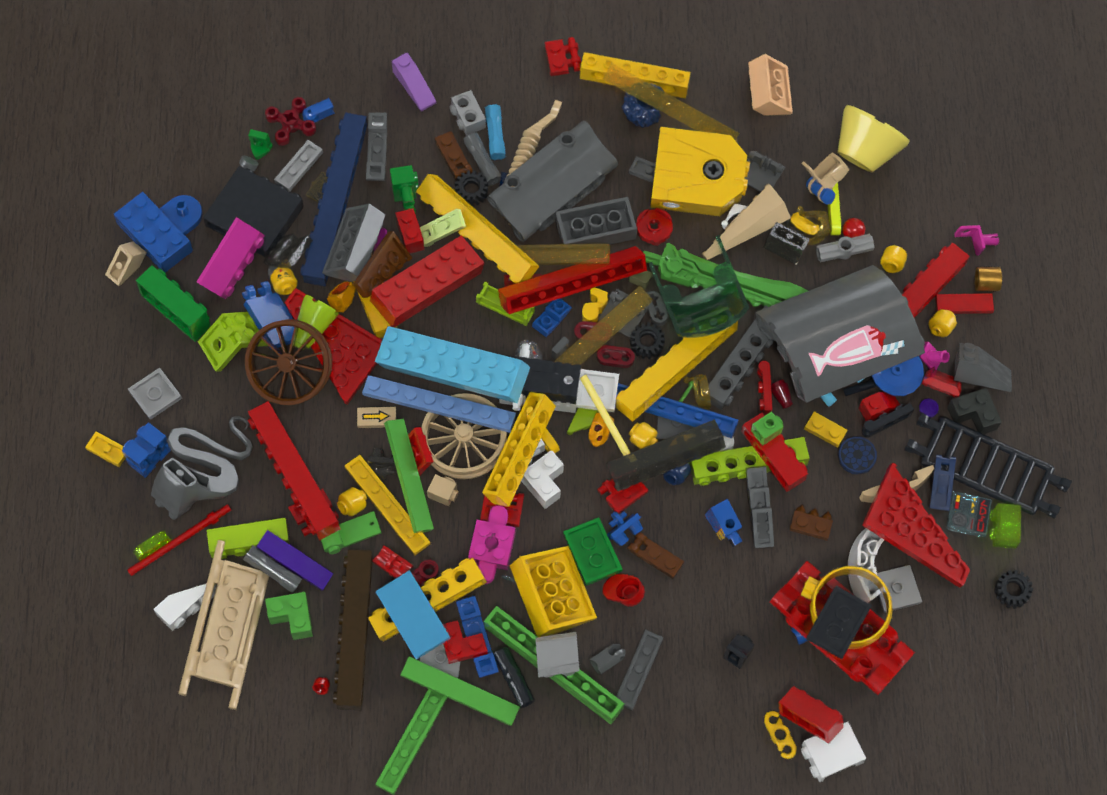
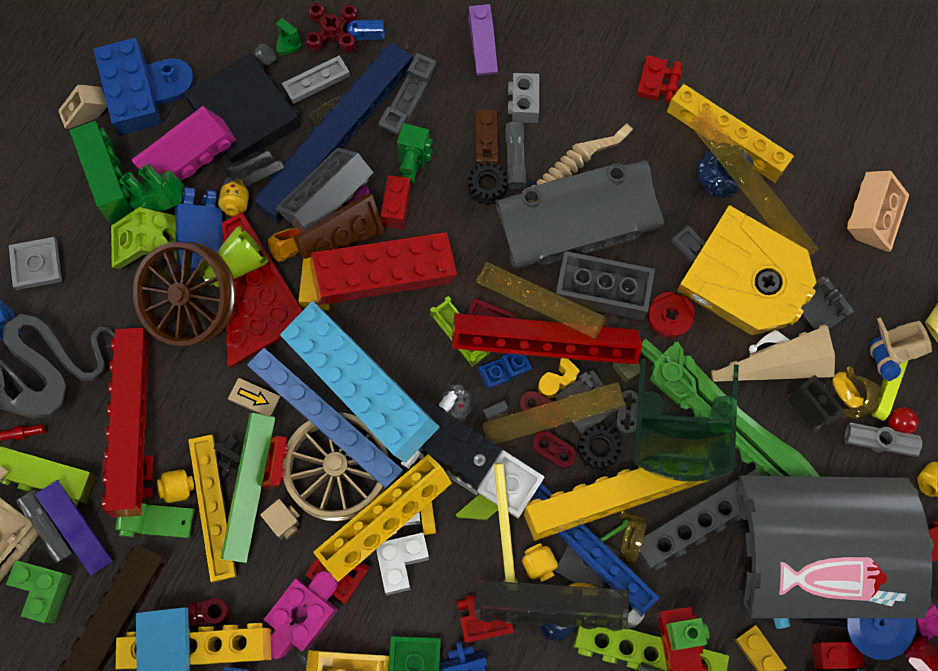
camera: 25 degrees right, 5 degrees up
(226, 299) = (155, 193): none -> green brick
(392, 562) = (179, 583): red hips -> none
(442, 227) = (431, 213): yellowish green plate -> none
(479, 230) = (469, 234): yellow brick -> none
(495, 134) = (539, 144): dark azure axle -> none
(598, 431) = (489, 532): light orange rock -> none
(764, 387) = (710, 568): red plate -> none
(781, 393) = (727, 585): dark red cone -> none

